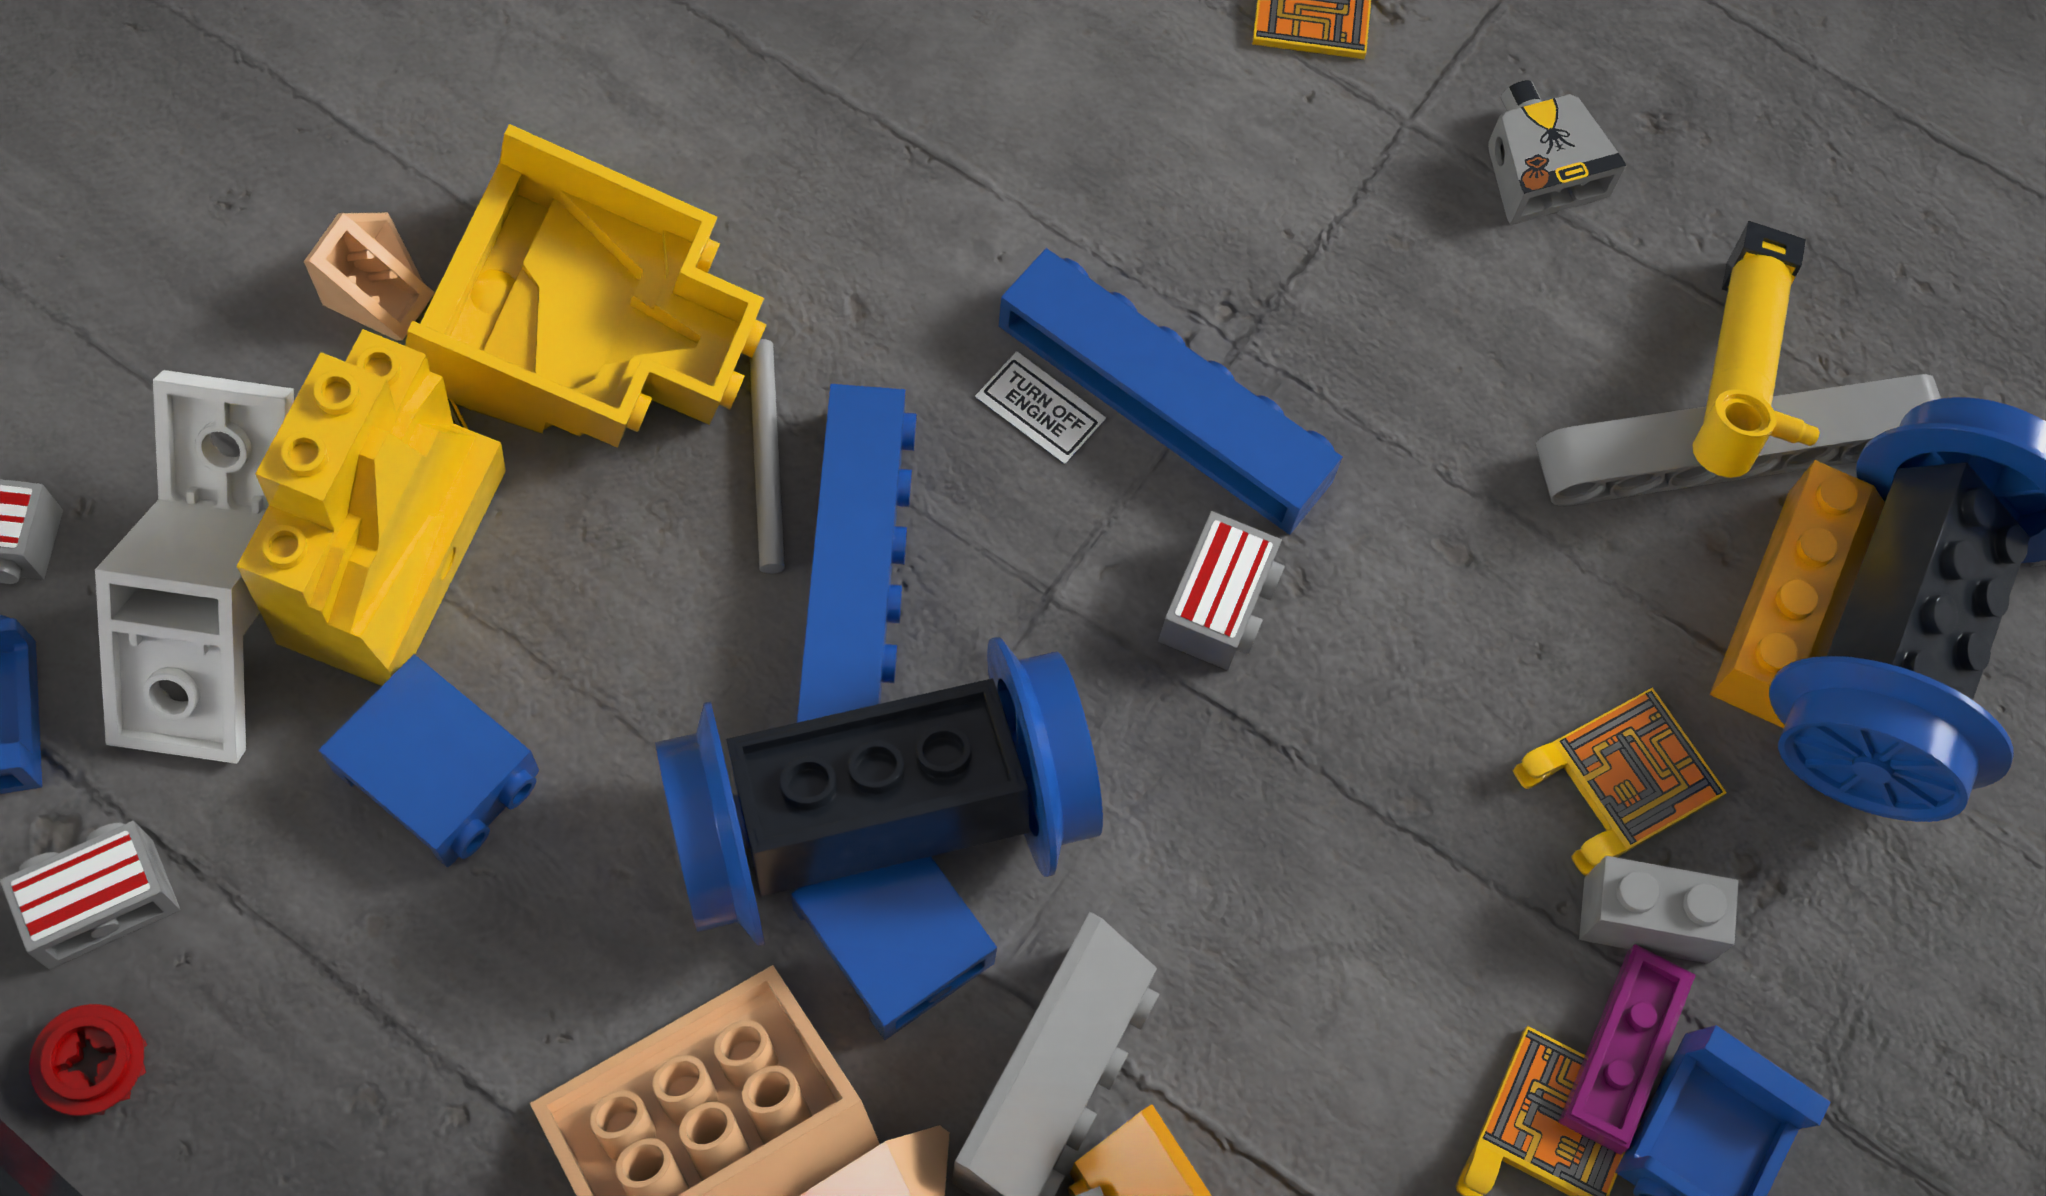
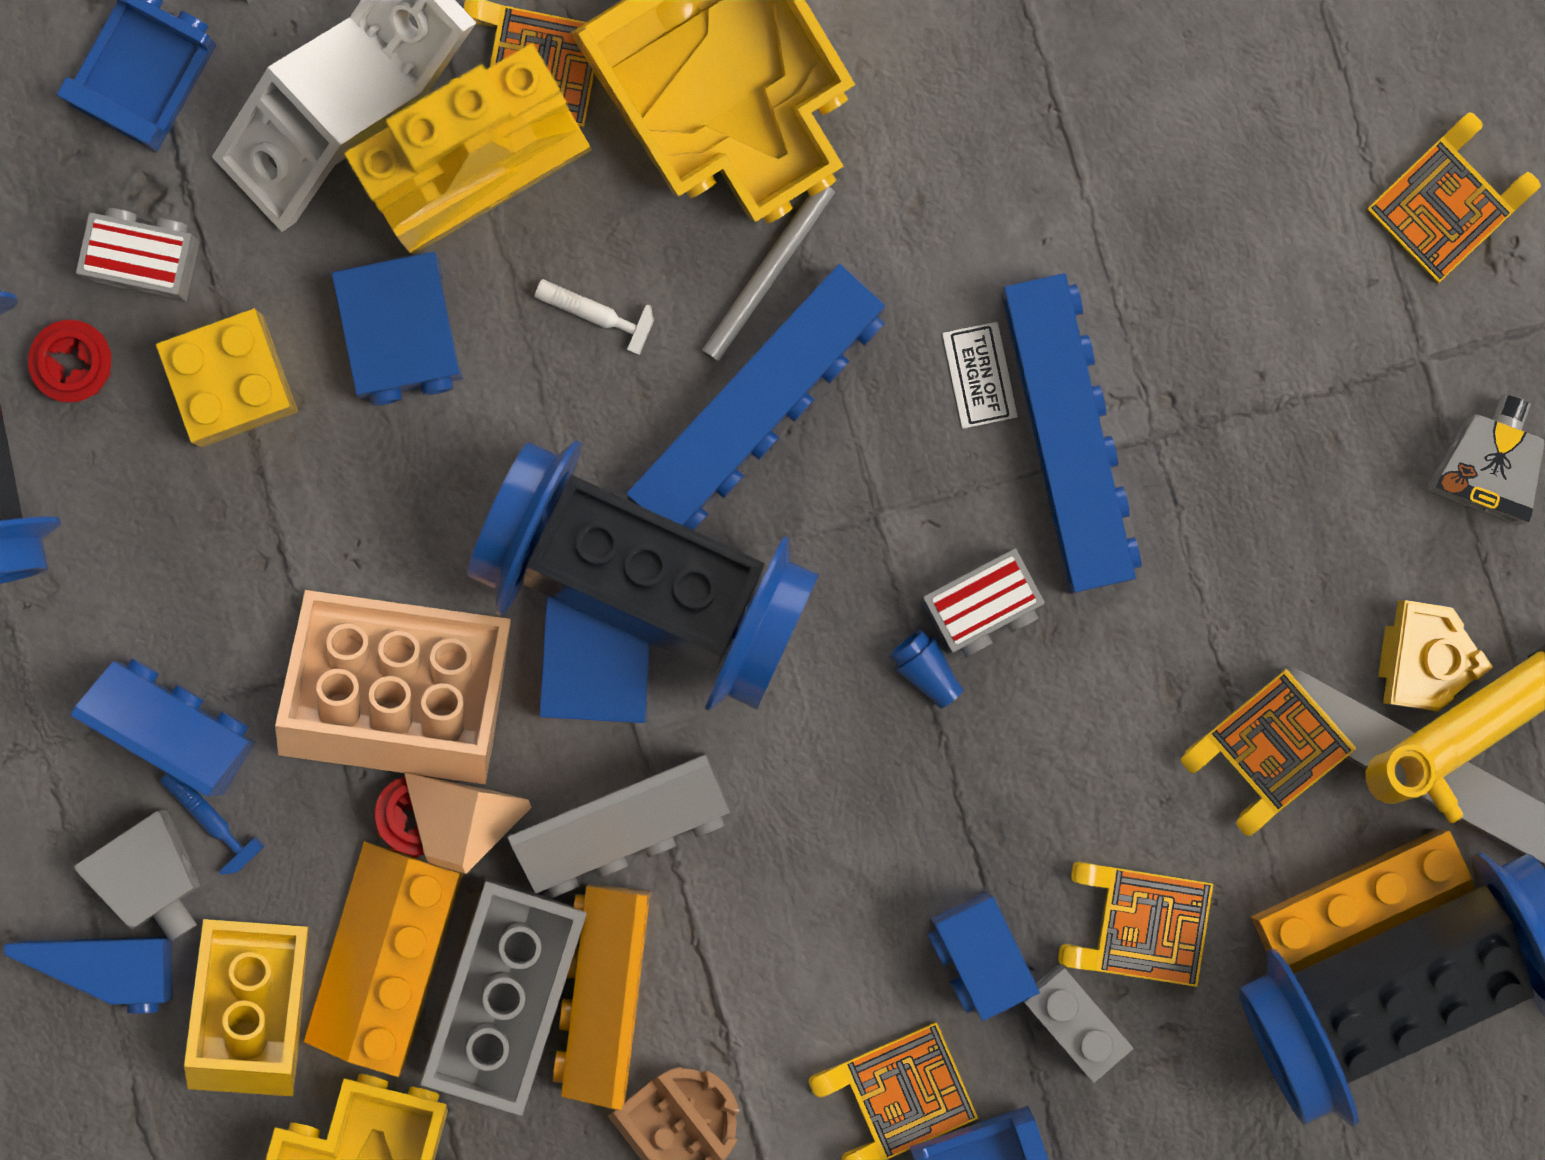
camera: 40 degrees right, 20 degrees up
(280, 942) = (227, 378): none -> yellow brick
(627, 609) = (596, 312): none -> white piece
(1221, 692) = (925, 666): none -> blue cone
(1521, 910) = (984, 957): none -> blue brick
(1598, 508) = (1277, 744): none -> flag
(1627, 1049) = (984, 1085): magenta tile -> none
(1643, 347) = (1428, 657): none -> yellow plate

